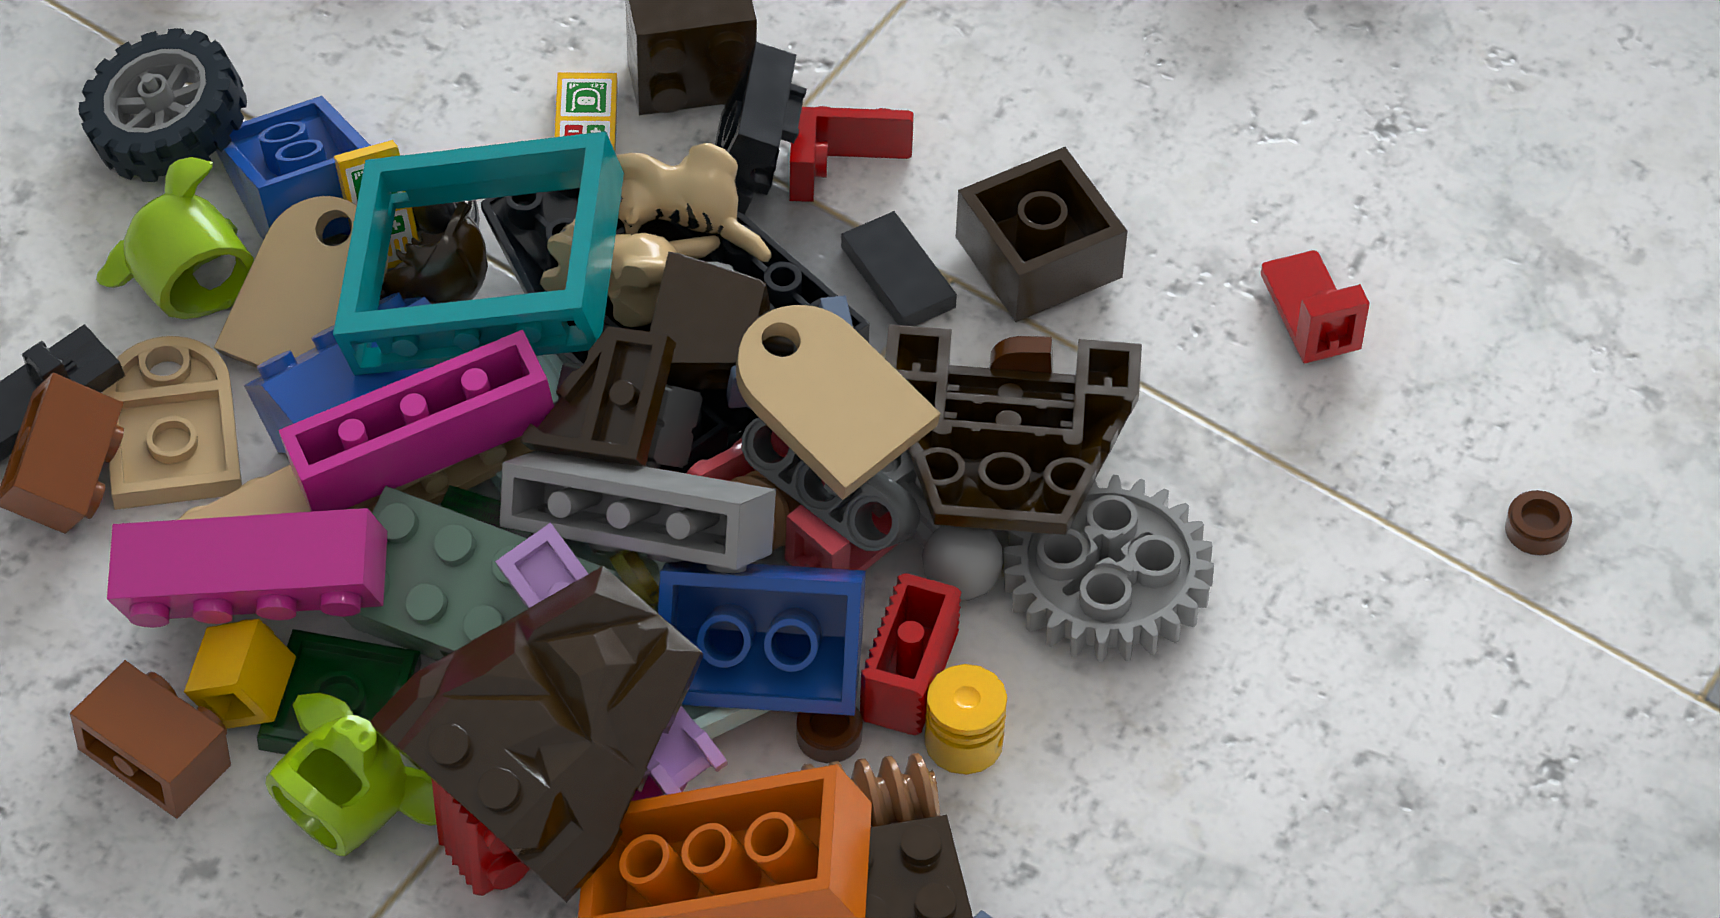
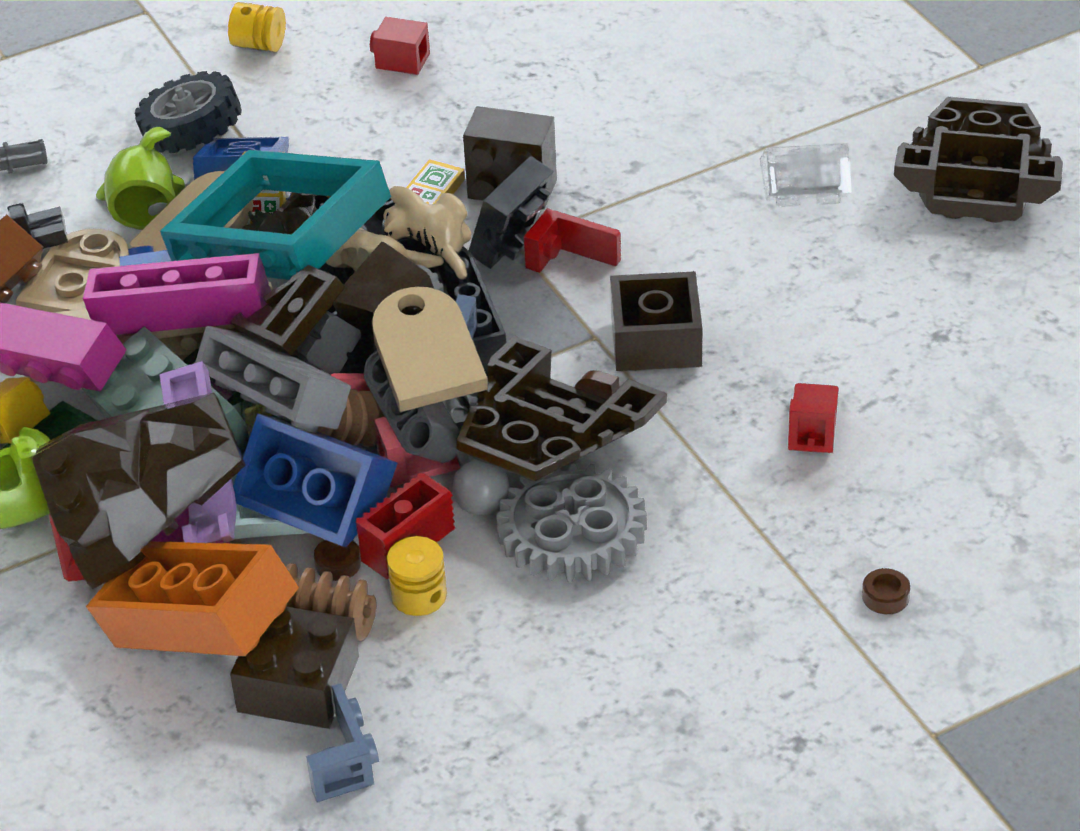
camera: 30 degrees right, 10 degrees down
(898, 270) = (562, 321): black tile -> none

